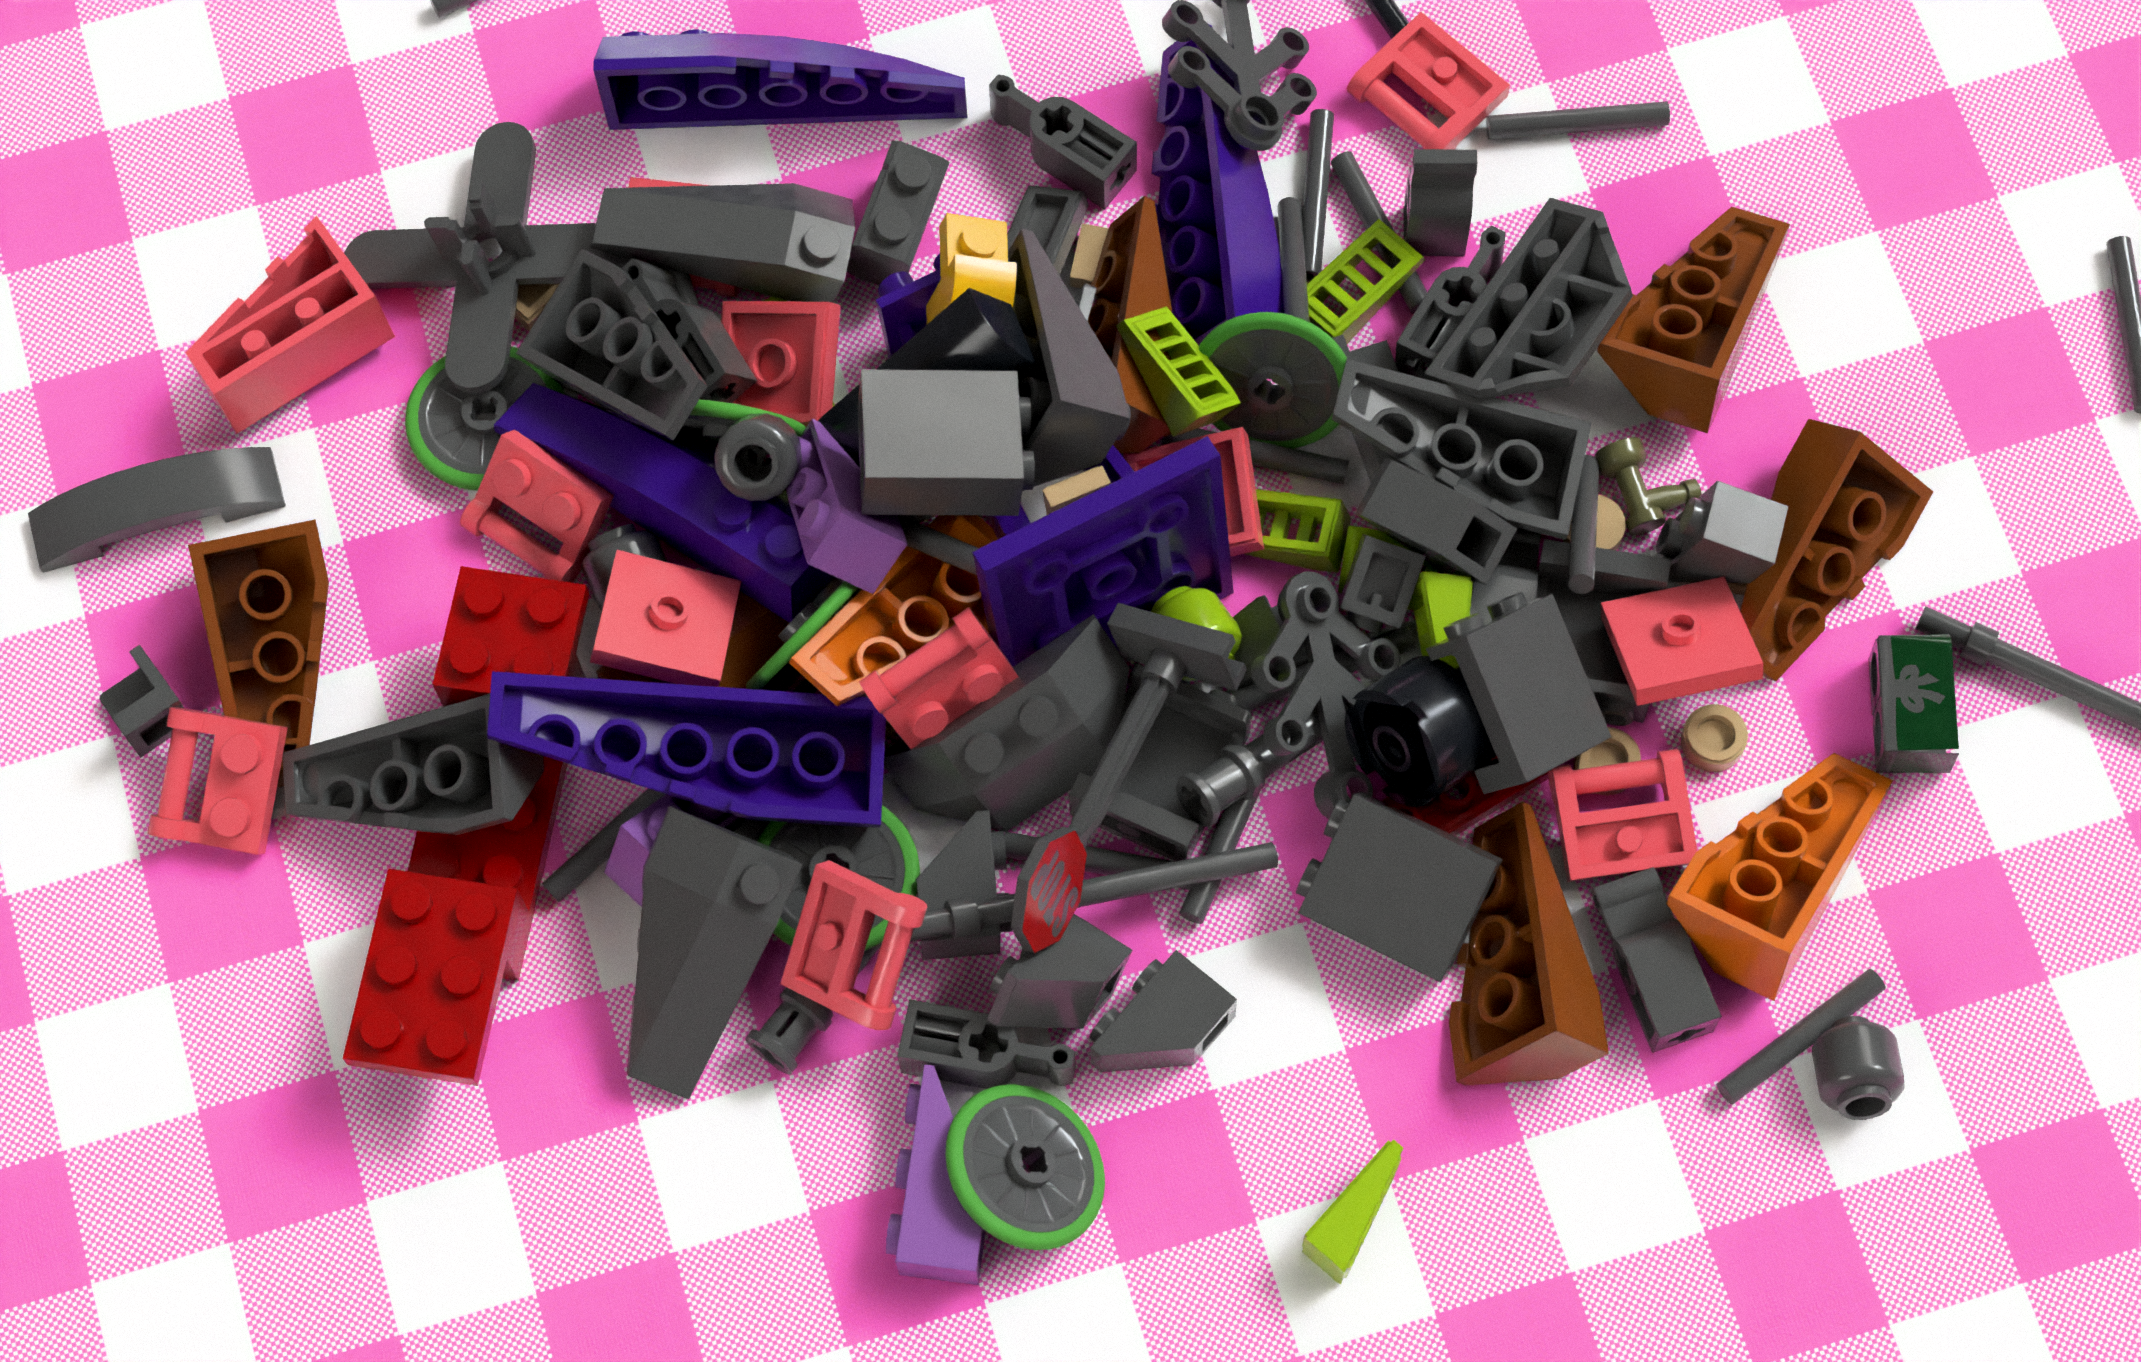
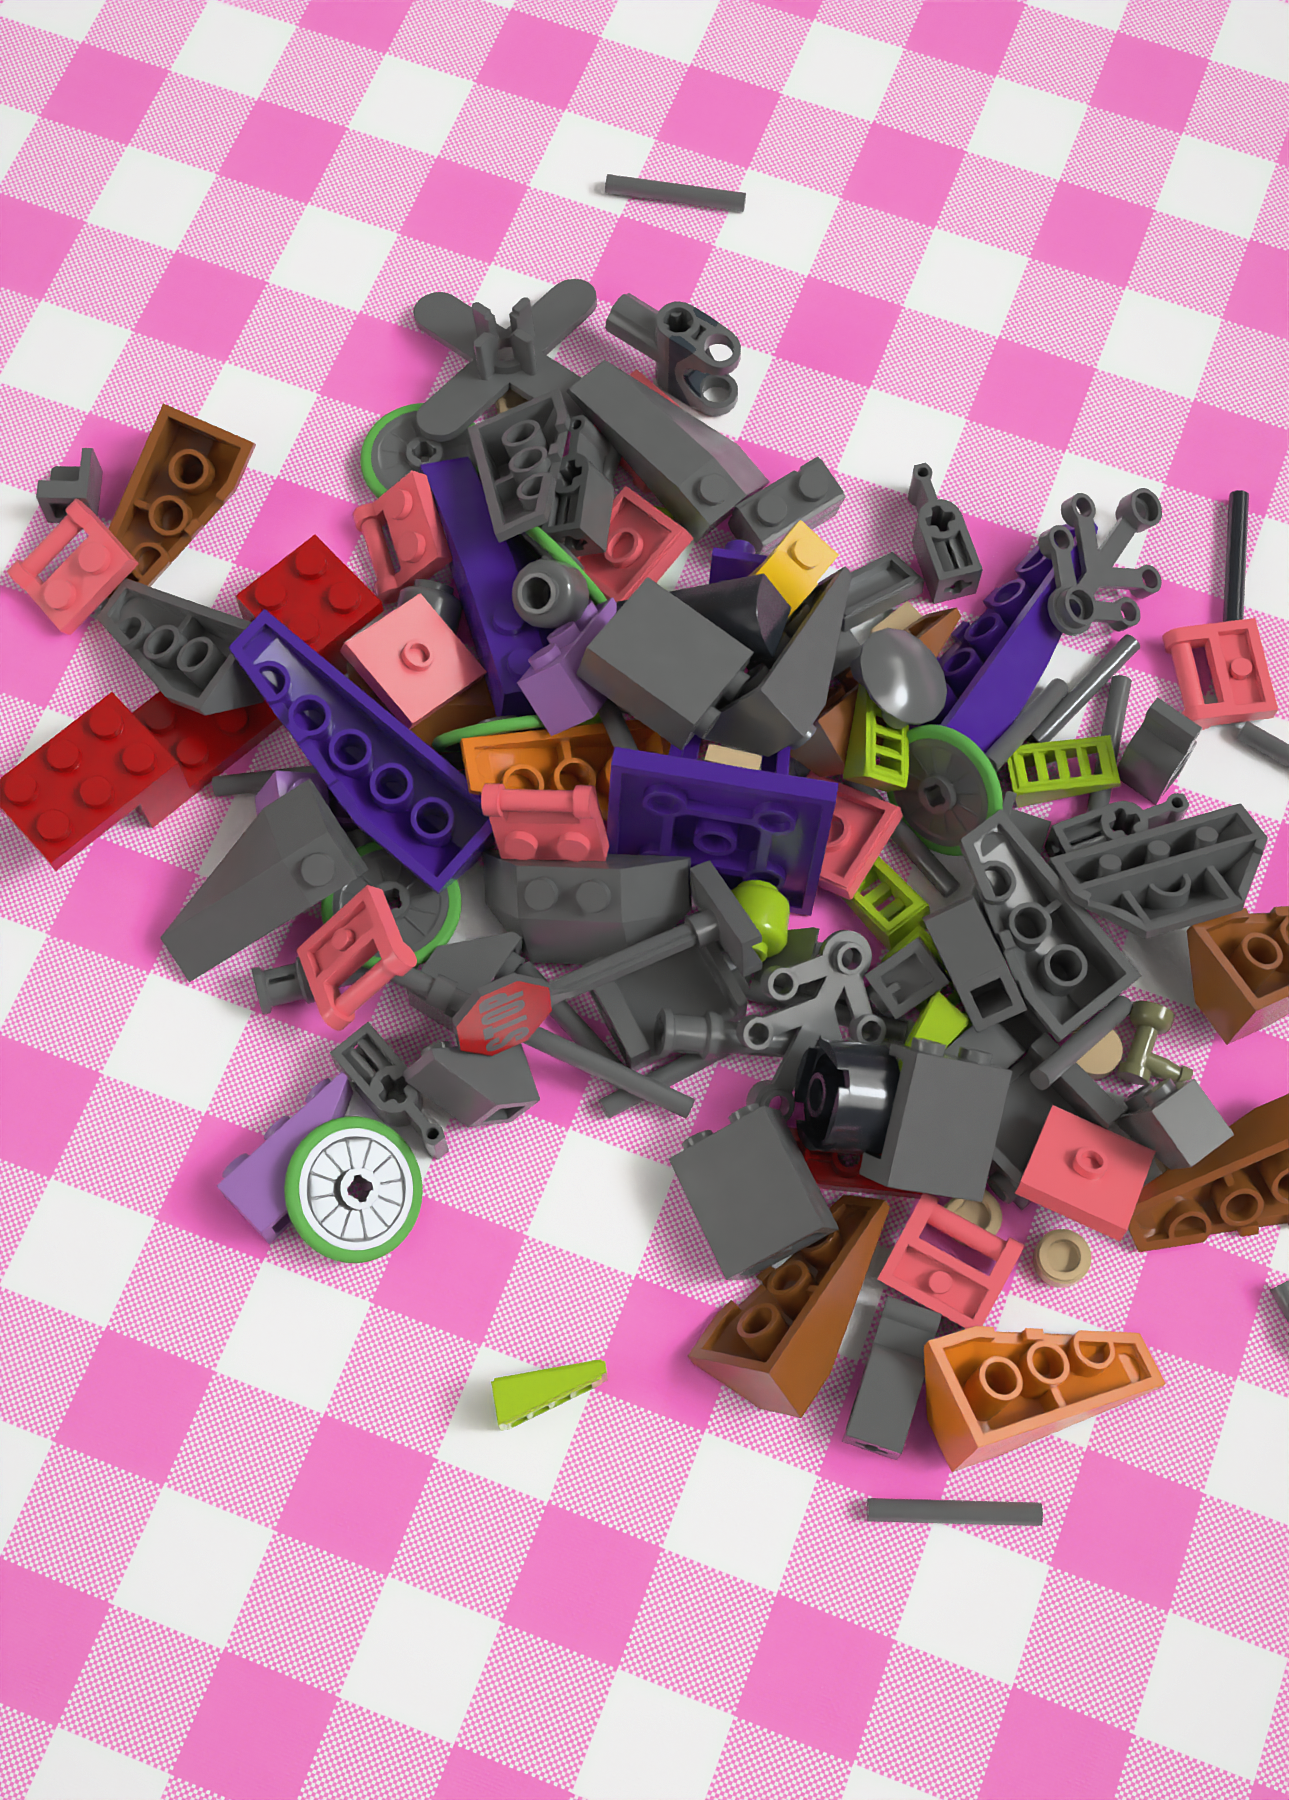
camera: 35 degrees right, 0 degrees up
(154, 498) = (185, 368): dark grey slope -> none
(290, 332) = (343, 320): coral wedge -> none
(663, 127) = (679, 343): none -> dark grey connector
(762, 81) = (785, 372): dark purple wedge -> none
(1155, 300) = (901, 677): none -> dark grey dish
(1167, 1022) = (526, 1164): dark grey slope -> none
(1858, 1068) = (973, 1566): dark grey head -> none
(1913, 703) = (1222, 1341): dark green piece -> none

